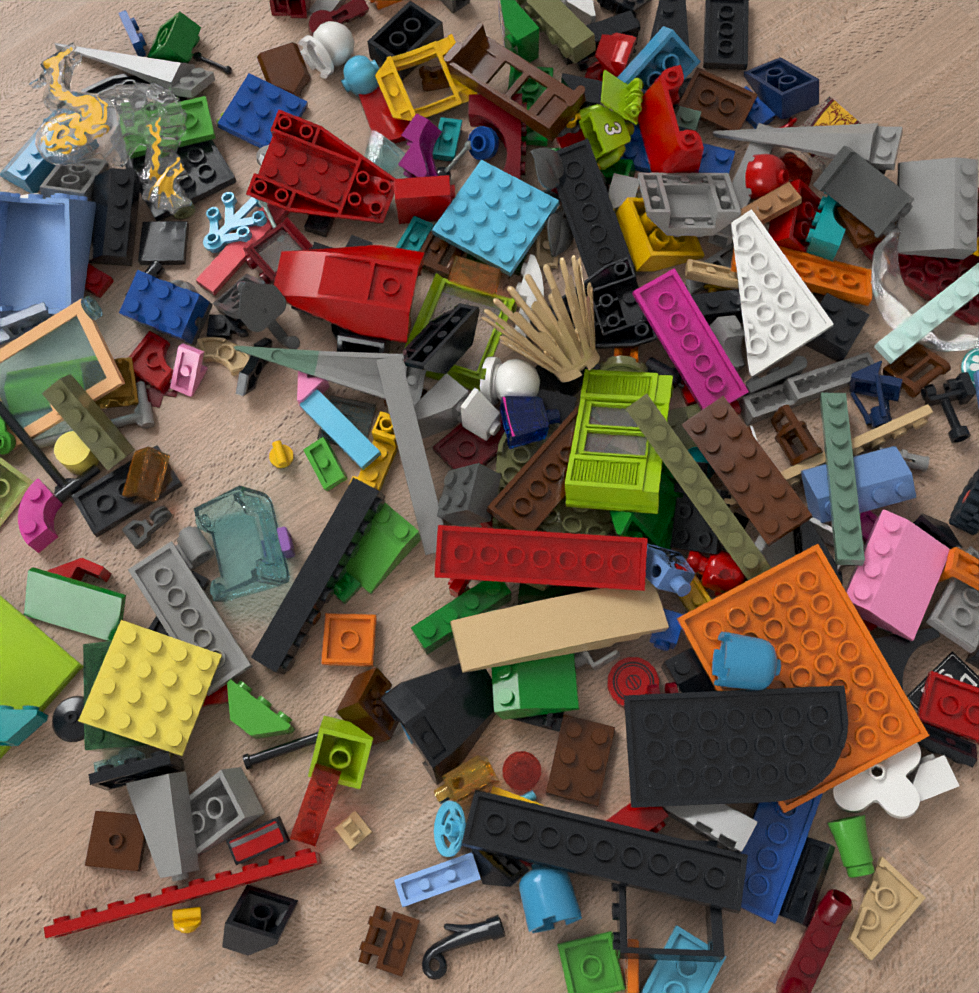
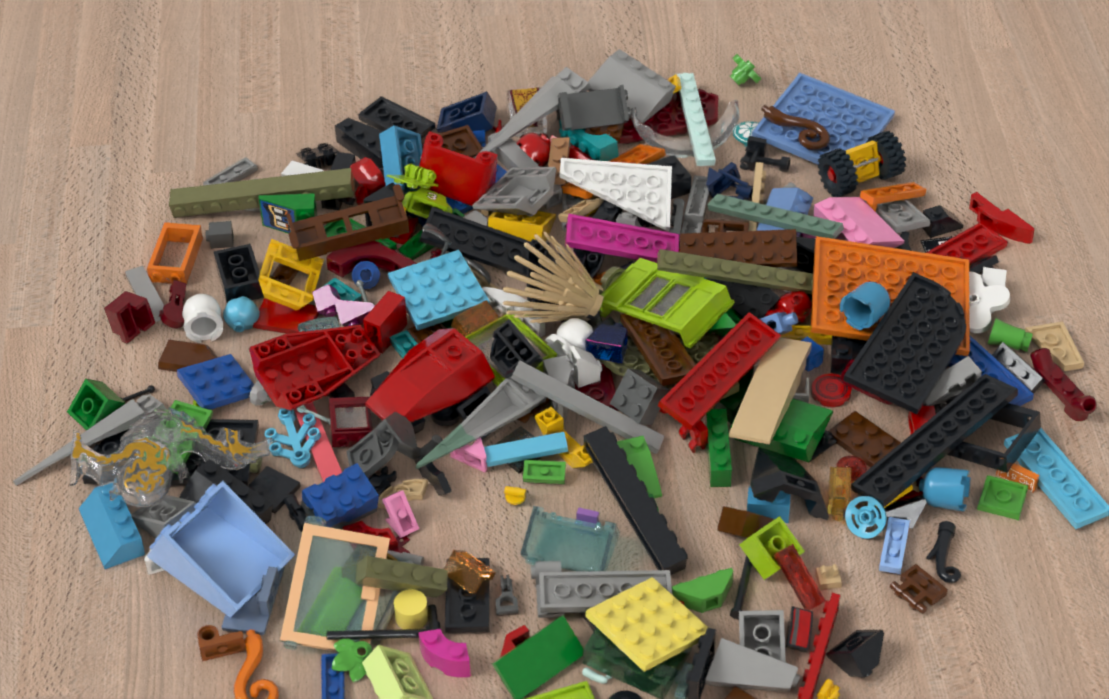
camera: 60 degrees left, 25 degrees down
(131, 27) = (59, 426): plate -> none
(349, 640) = (690, 517): orange plate -> none
(914, 362) = (722, 156): reddish brown plate -> none

